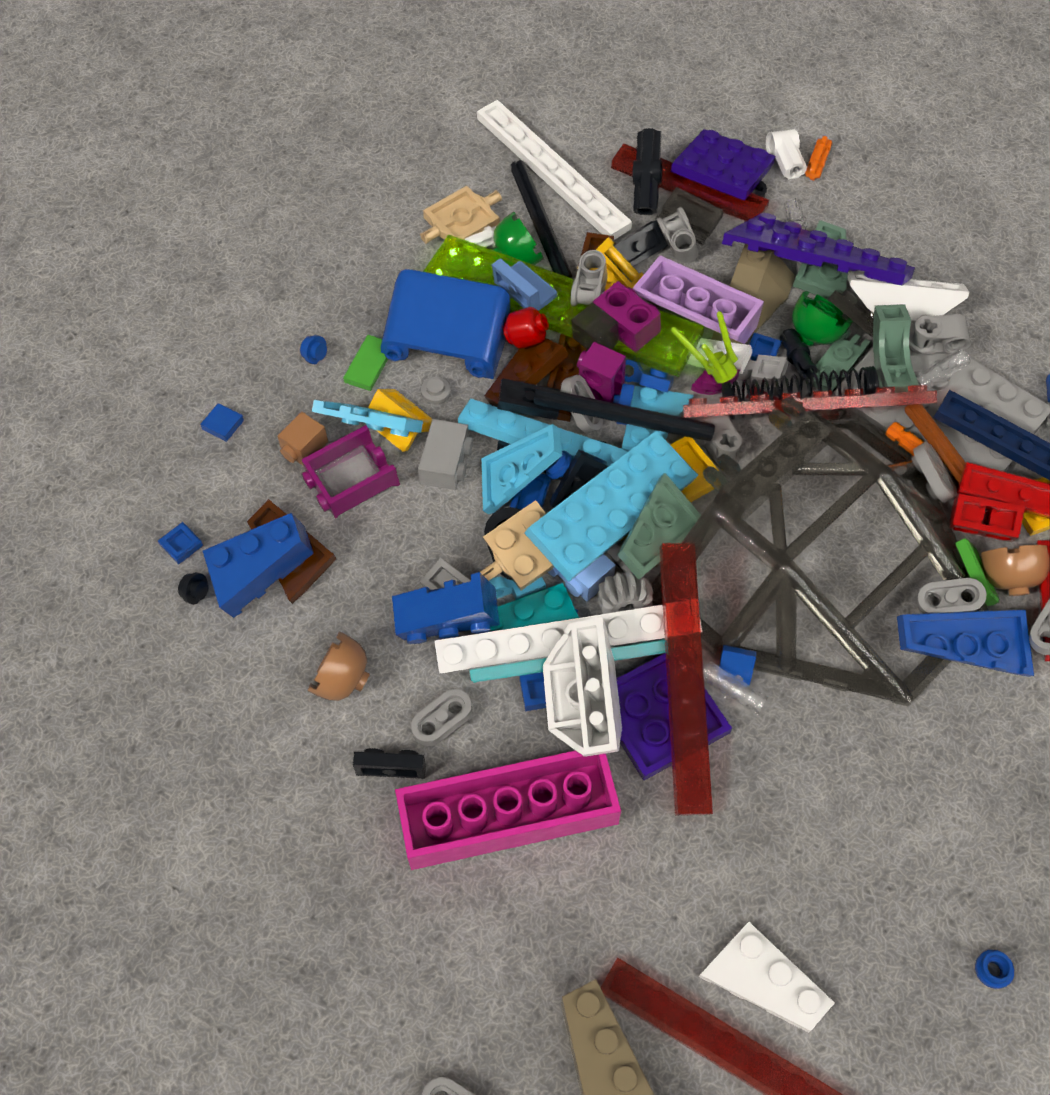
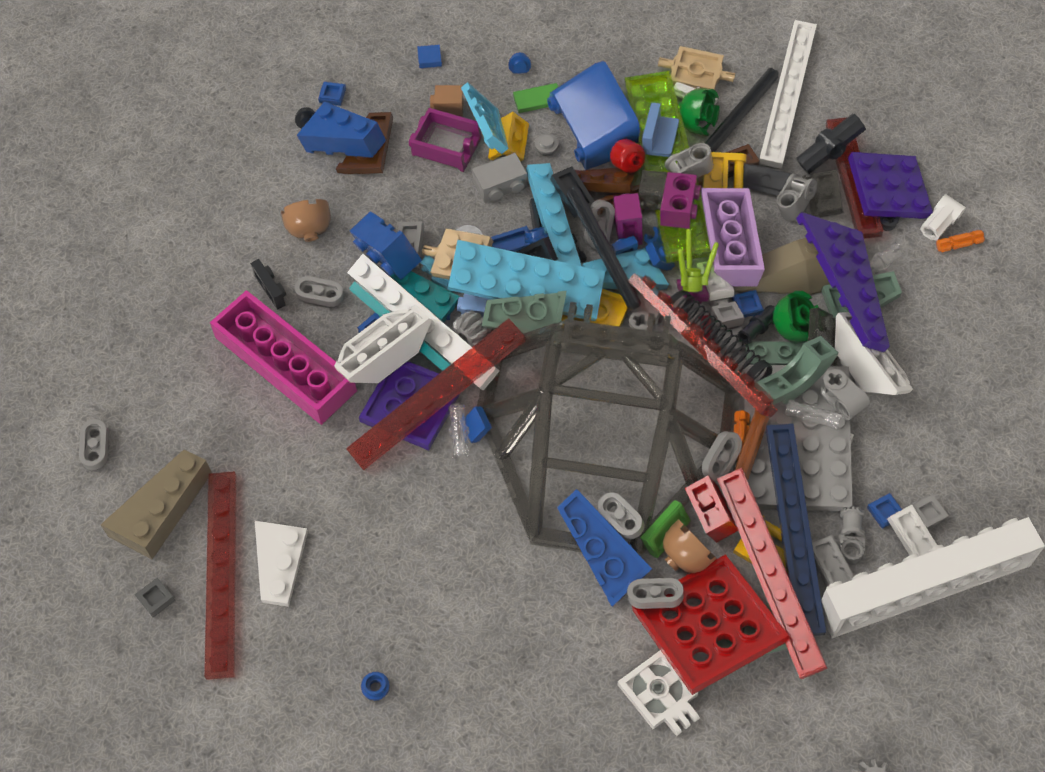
camera: 55 degrees right, 0 degrees up
(517, 465) = (518, 217): medium azure wing -> none

